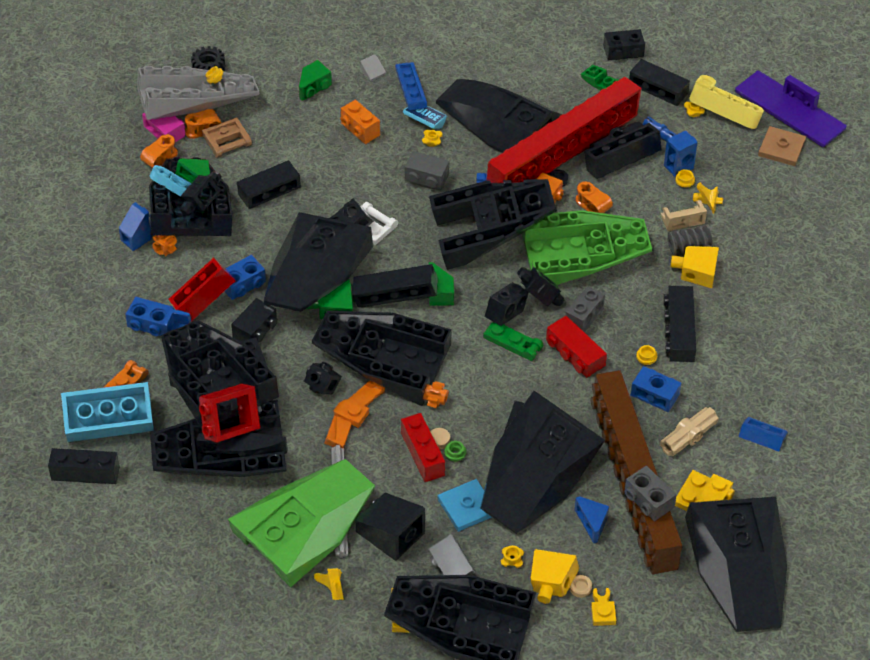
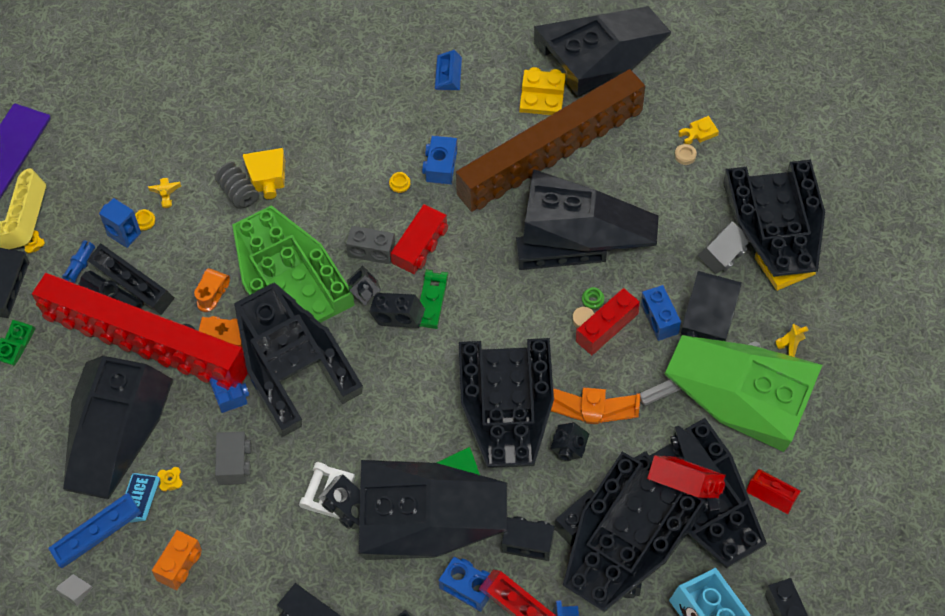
camera: 110 degrees left, 10 degrees up
(203, 509) = (773, 491): none -> red slope
(395, 286) = (420, 416): black brick -> none
(413, 487) = (660, 312): none -> blue brick
(435, 394) = (538, 330): orange gear -> none
(445, 288) = (394, 384): green slope -> none
(463, 505) = (647, 267): dark azure plate -> none
(512, 551) = (685, 207): yellow plate -> none
(552, 574) = (692, 171): yellow torso -> none
(592, 515) = (615, 161): blue slope -> none
(645, 488) = (597, 93): dark grey brick -> none
(681, 324) = (350, 163): black brick -> none
(684, 218) = (199, 204): tan hinge -> none
(689, 431) = (478, 121): tan piece -> none
(782, 146) = (62, 151): medium nougat plate -> none

